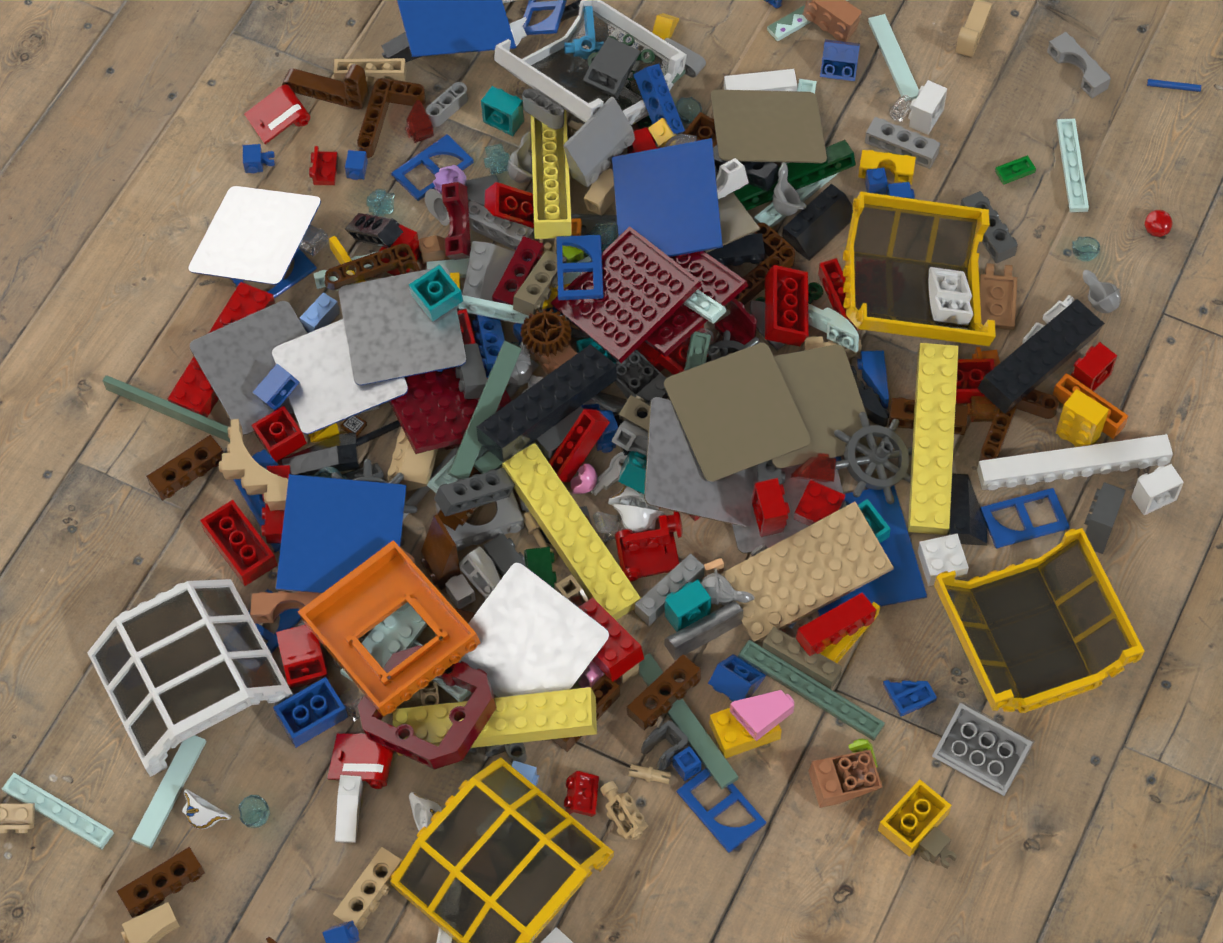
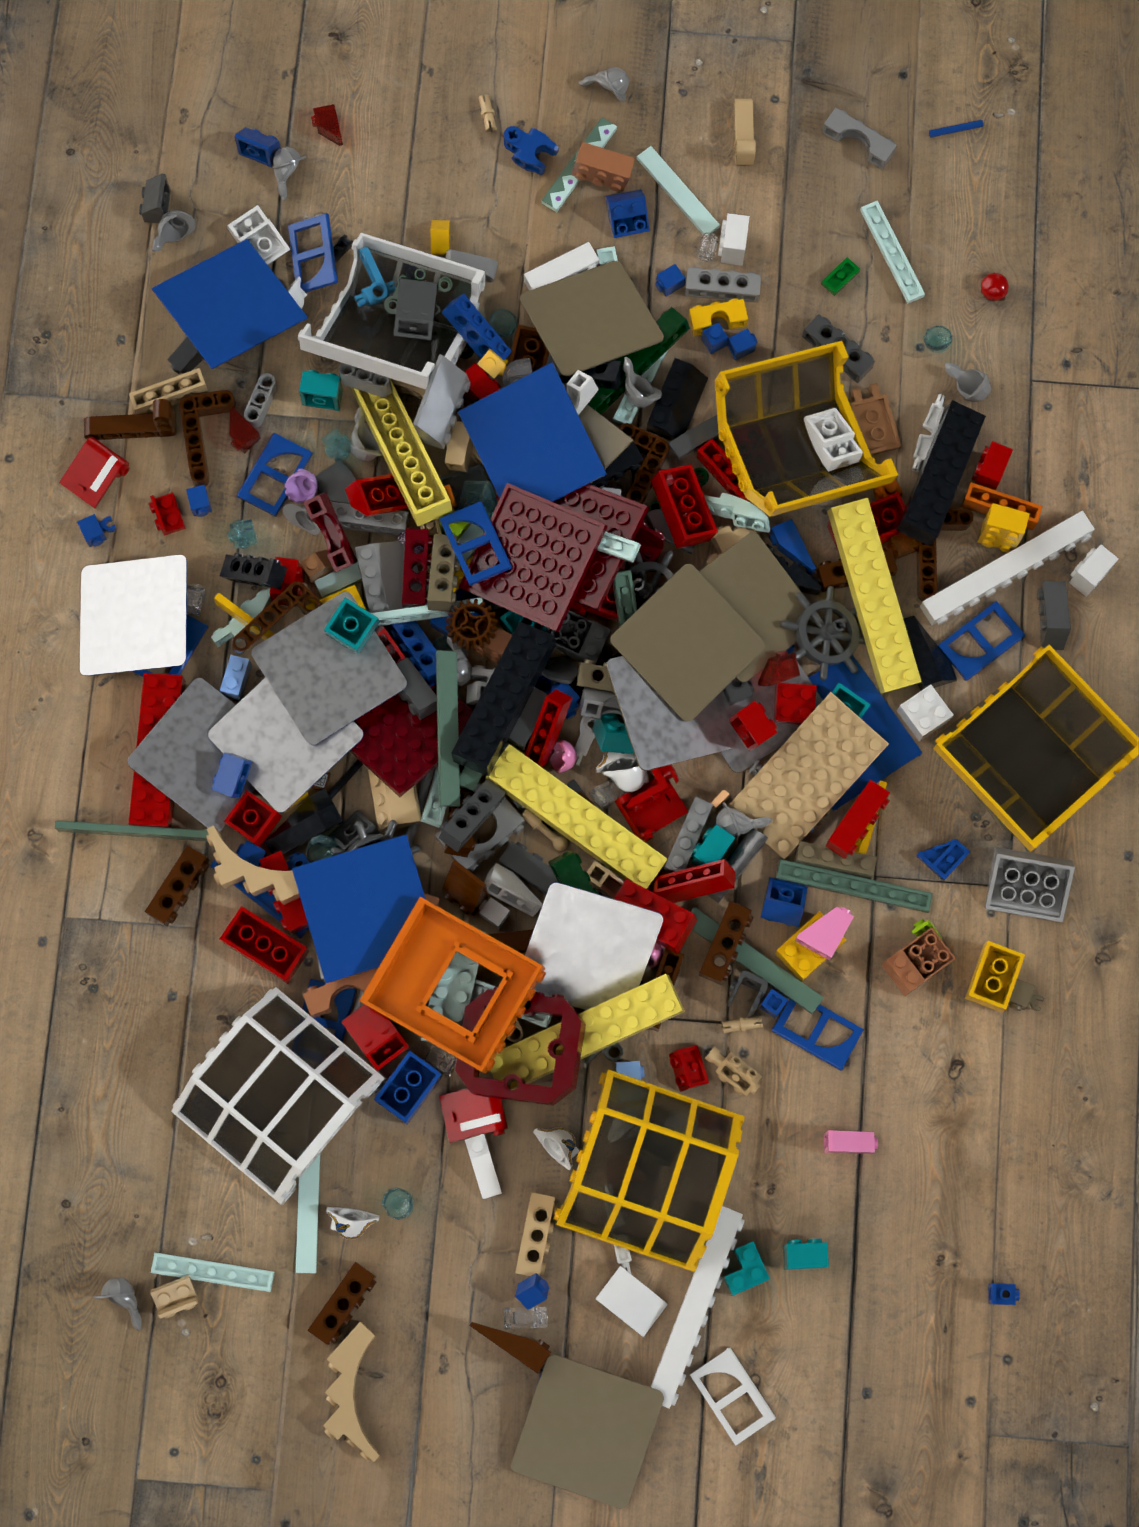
camera: 25 degrees left, 15 degrees up
(659, 624) = (695, 881): none -> red brick
(707, 917) = (849, 1142): none -> bright pink slope
(813, 256) = (695, 438): none -> dark grey slope
(855, 123) = (670, 280): none -> blue brick

